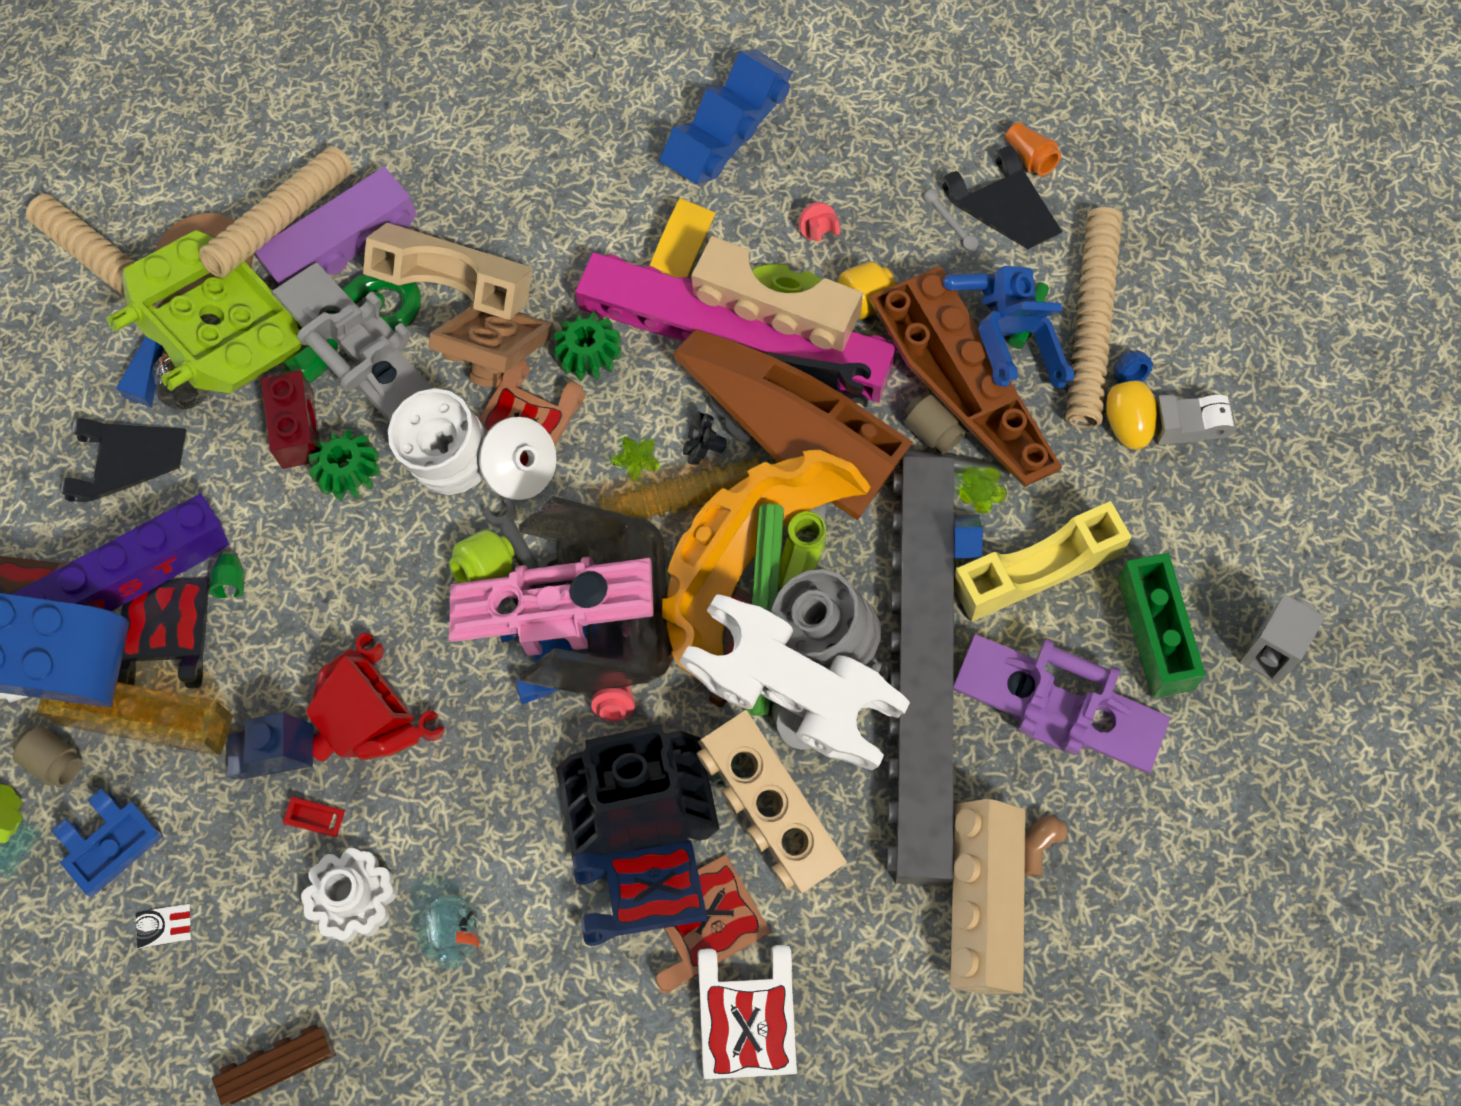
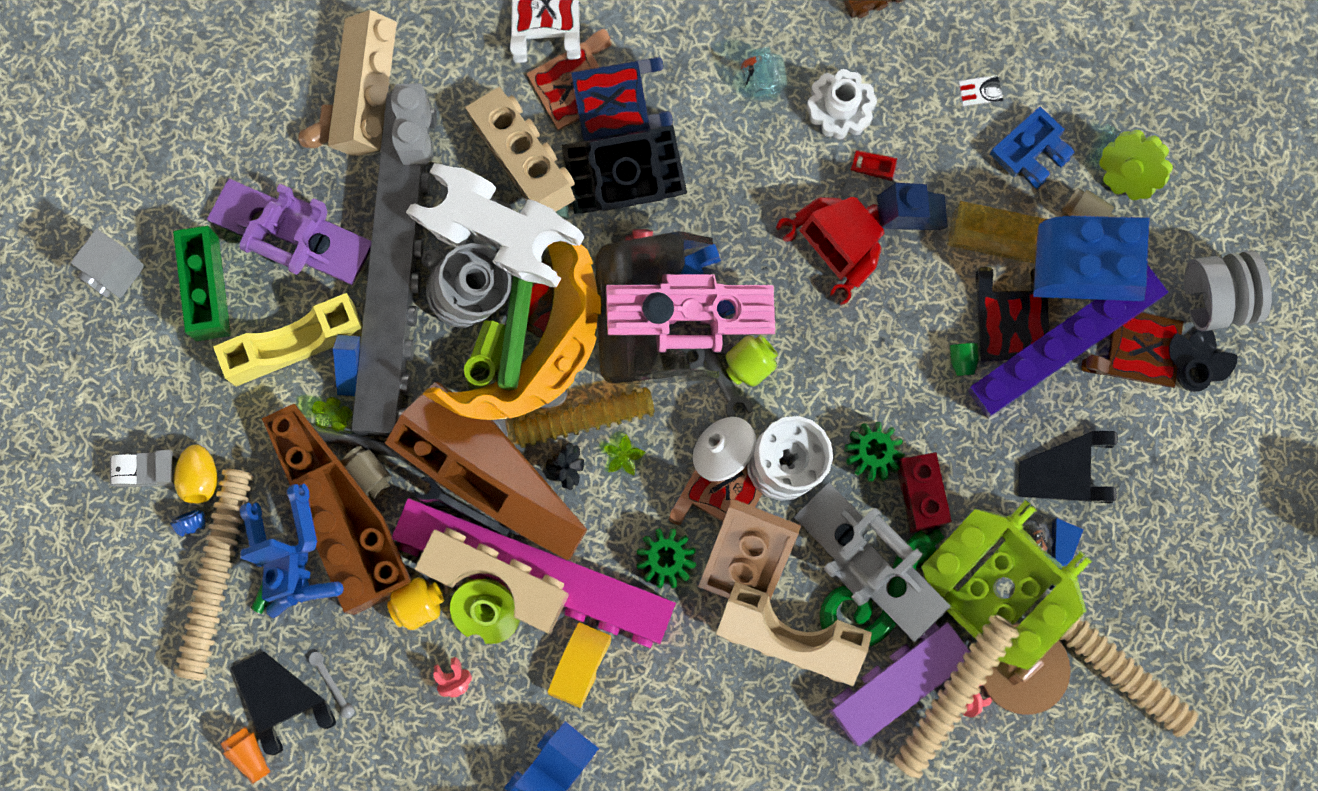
camera: 175 degrees right, 10 degrees up
(915, 830) = (411, 124): none -> light grey brick

